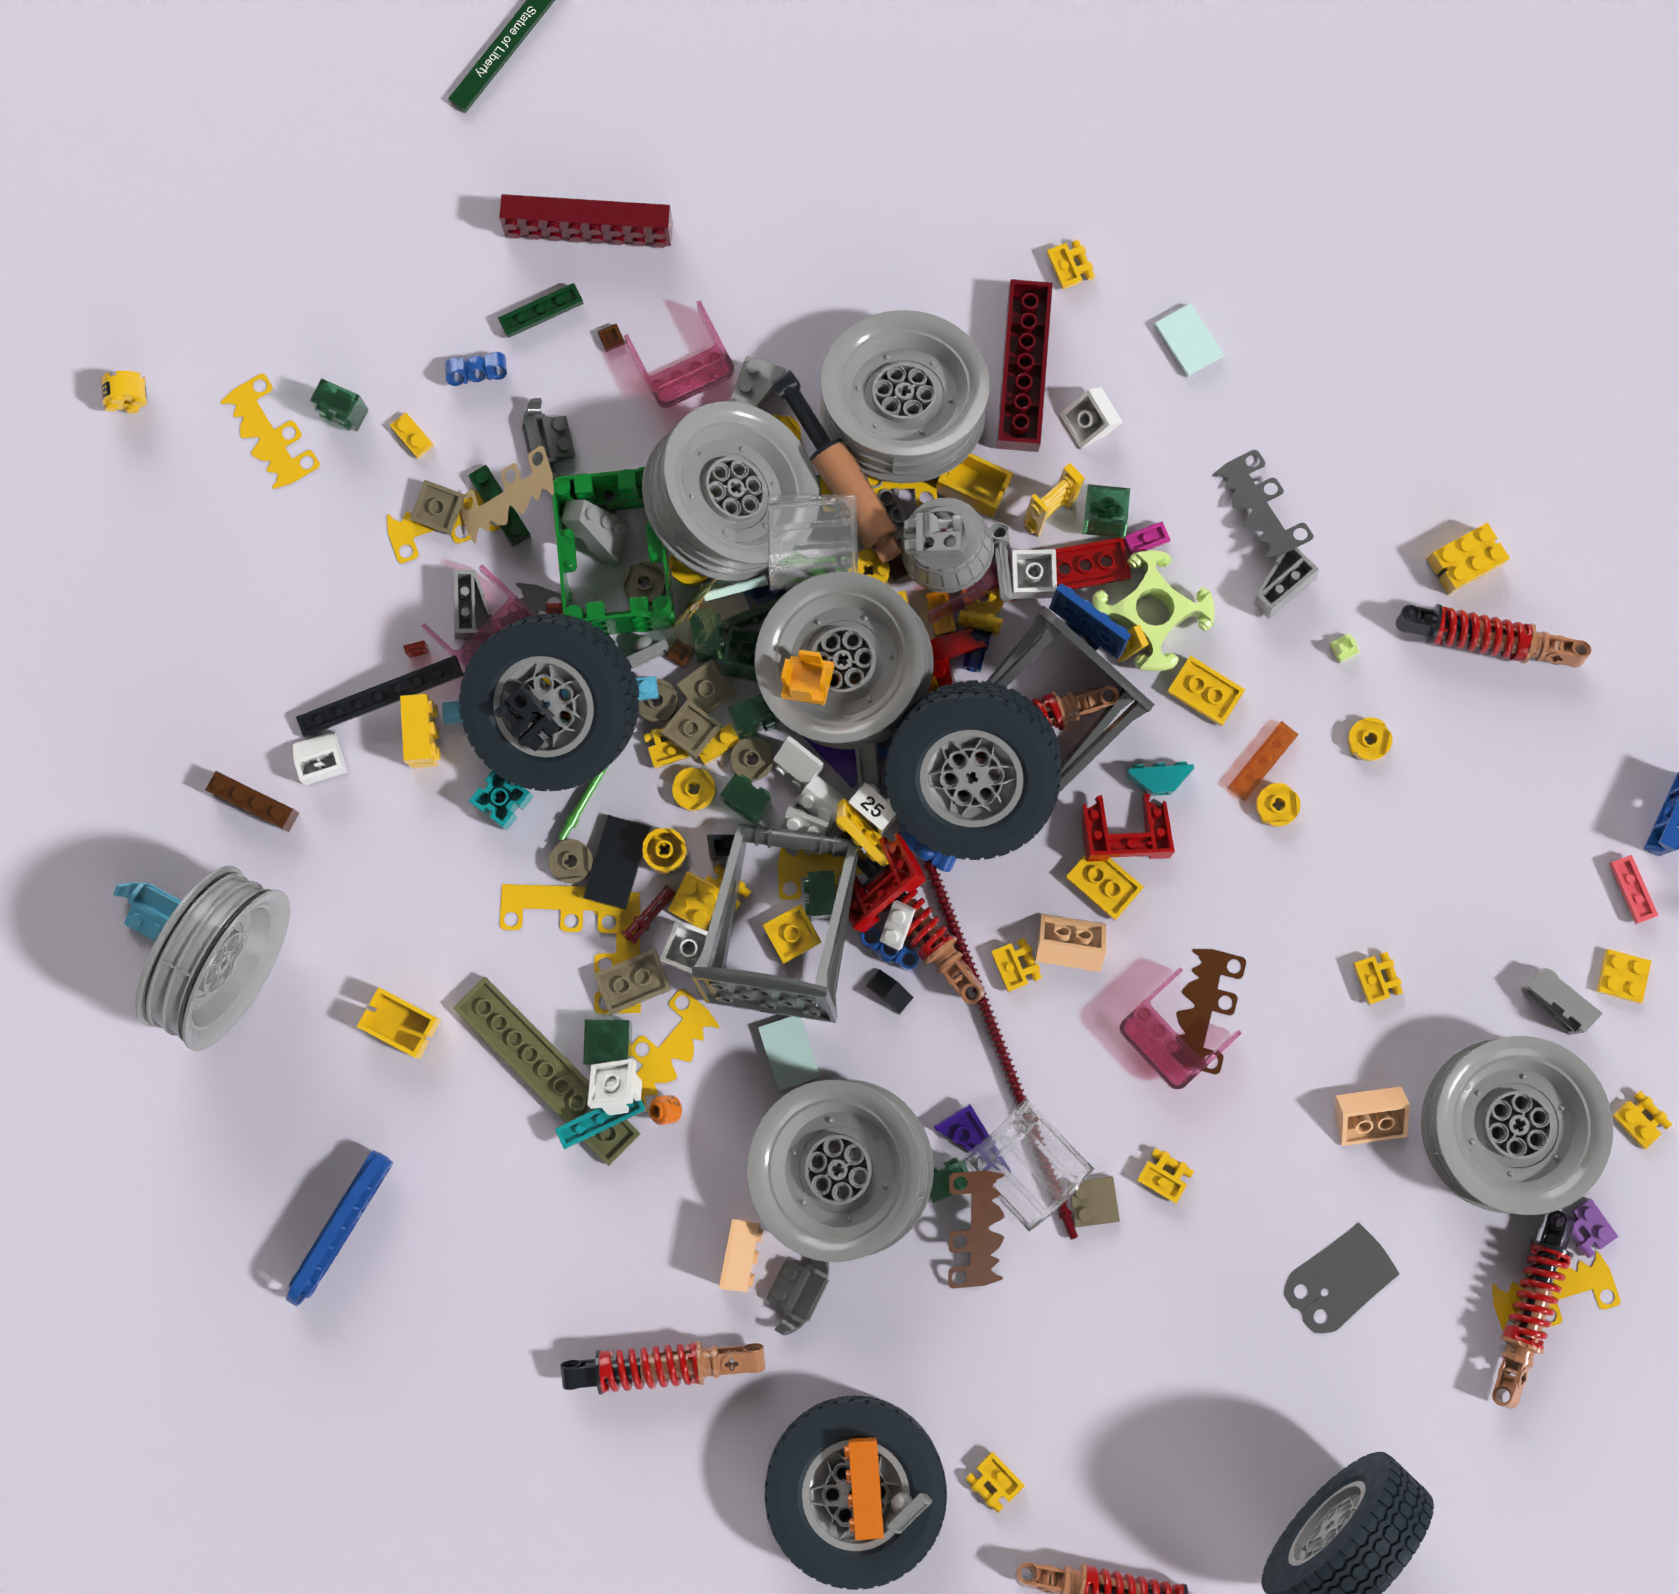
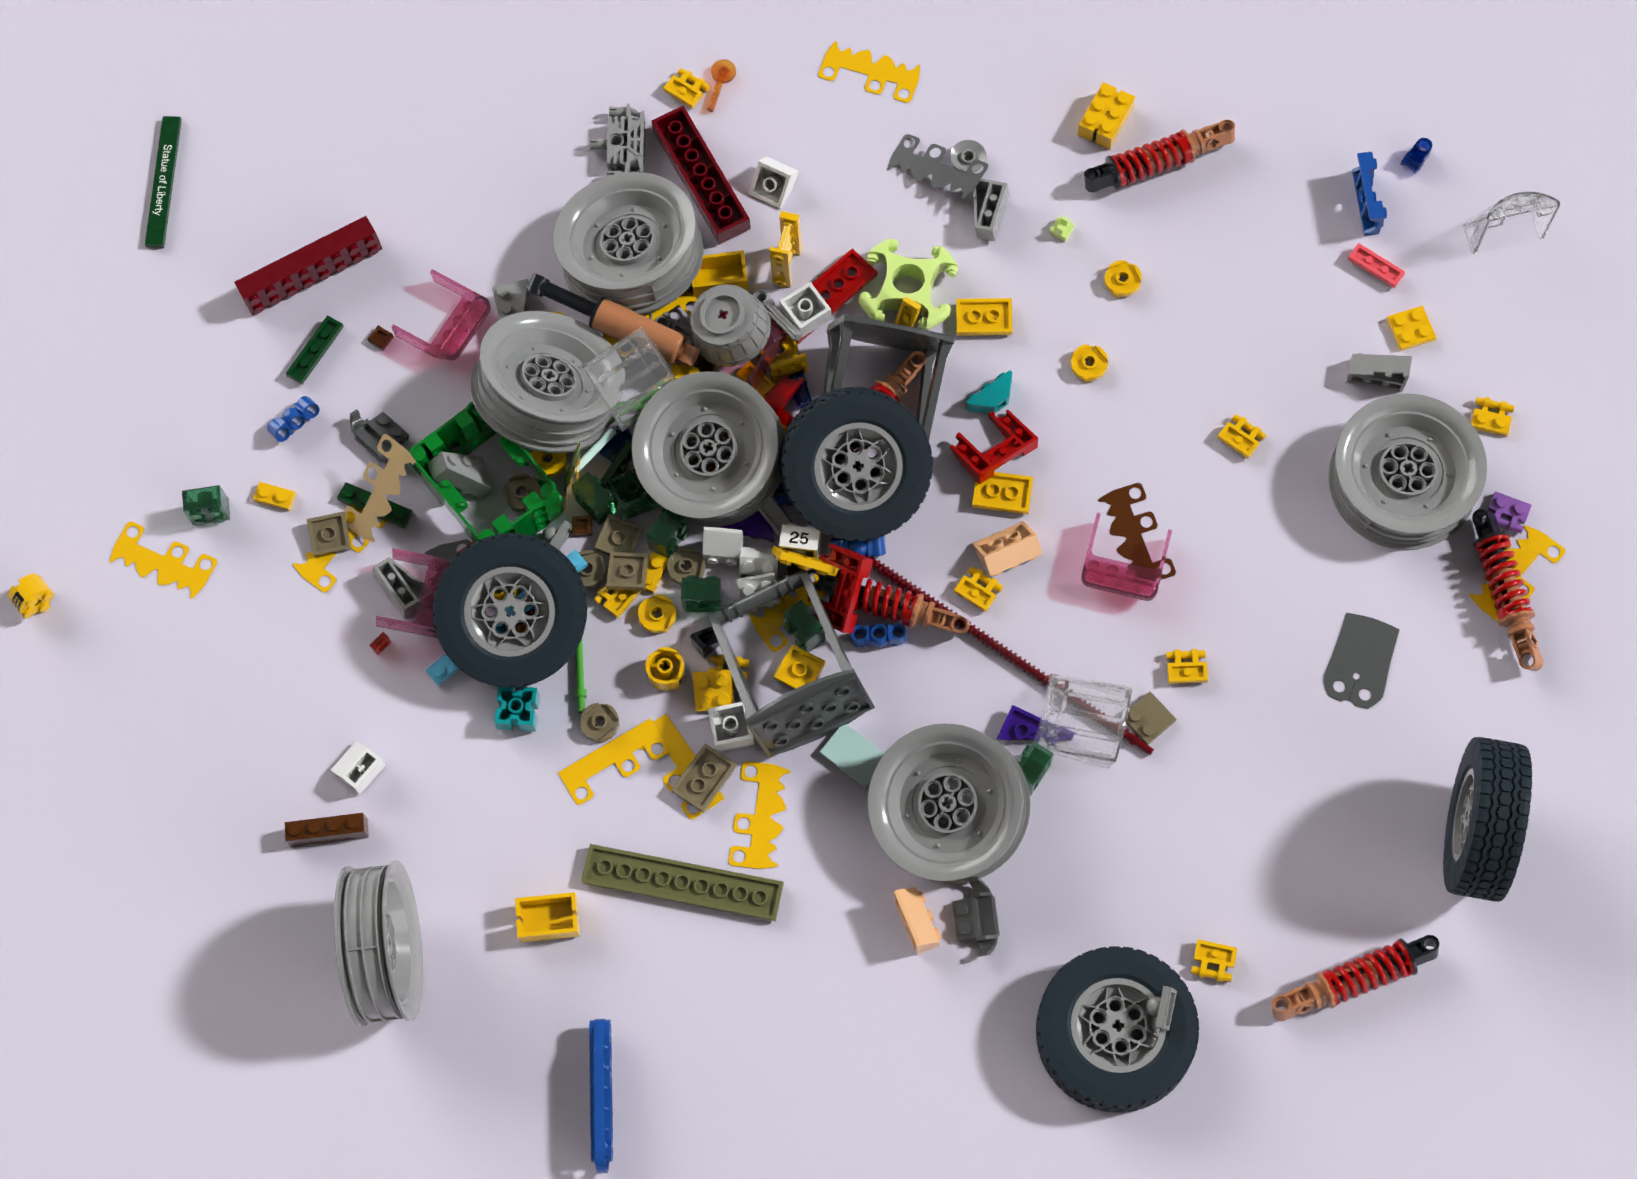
camera: 25 degrees left, 10 degrees down
(149, 907) = (301, 958): medium azure plate -> none
(379, 696) = (375, 692): black plate -> none
(419, 731) = (423, 697): yellow piece -> none
(533, 717) = (508, 624): black hips -> none
(594, 1123) = (747, 888): teal plate -> none
(607, 1041) = (715, 832): clear green brick -> none
(614, 1086) = (741, 855): white panel -> none
(616, 862) = (634, 701): black tile -> none
(643, 925) = (680, 731): dark red pin -> none
(665, 1109) = (791, 852): orange head -> none
(688, 1364) = (932, 1019): piece -> none
(806, 678) = (690, 474): light orange panel -> none
(866, 1488) = (1122, 1012): orange brick -> none
(890, 991) = (899, 665): black slope -> none
(897, 925) = (873, 609): white plate -> none
(929, 539) = (718, 322): light grey hips -> none
(980, 1240) = (1085, 793): reddish brown piece -> none
(982, 292) = (617, 134): none -> light grey piece
(1089, 622) = (883, 311): blue plate -> none
(1106, 511) = (828, 237): clear green brick -> none
(1116, 270) = (722, 72): none -> clear orange piece
(1147, 538) = (870, 238): dark pink plate -> none
(1189, 340) = (807, 88): light aqua tile -> none
(1262, 760) = (1057, 340): clear orange plate -> none
(1274, 367) = (882, 70): none -> yellow piece
(1303, 504) = (967, 149): none -> light grey dish
(1372, 1115) = (1303, 531): light nougat slope -> none

